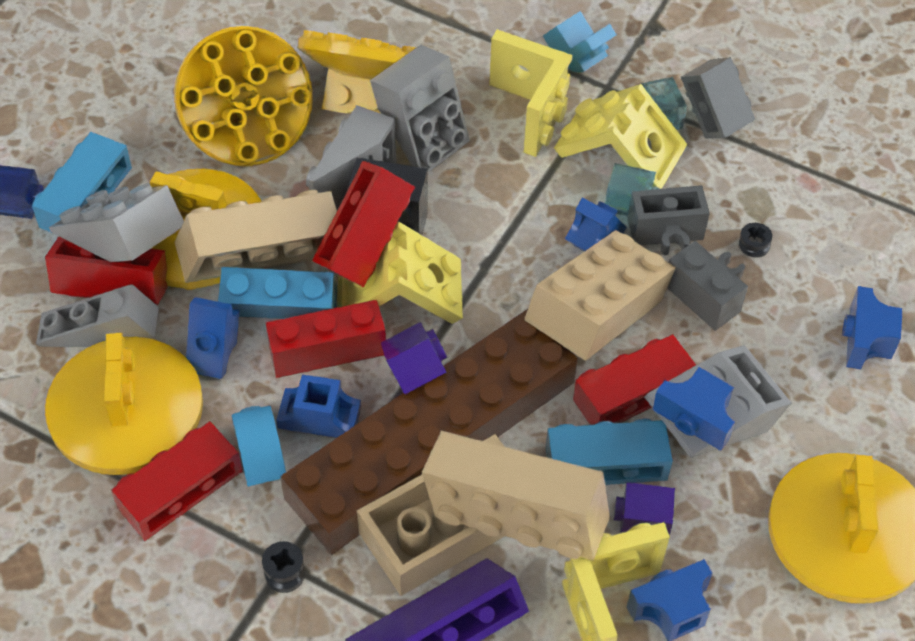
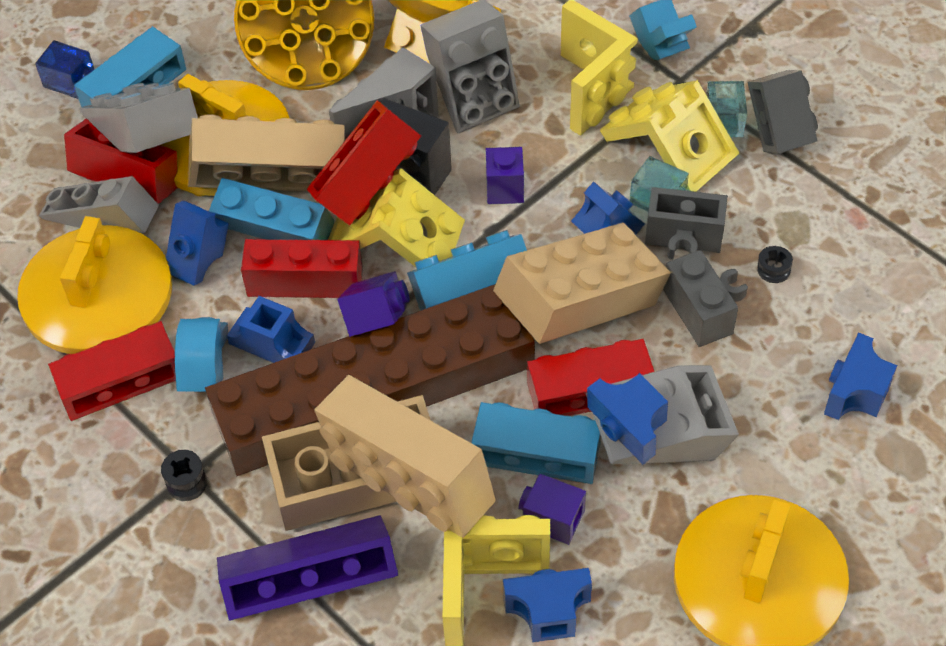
camera: 20 degrees right, 0 degrees up
(485, 208) = (505, 175): none -> dark purple brick
(486, 307) = (464, 271): none -> dark azure brick

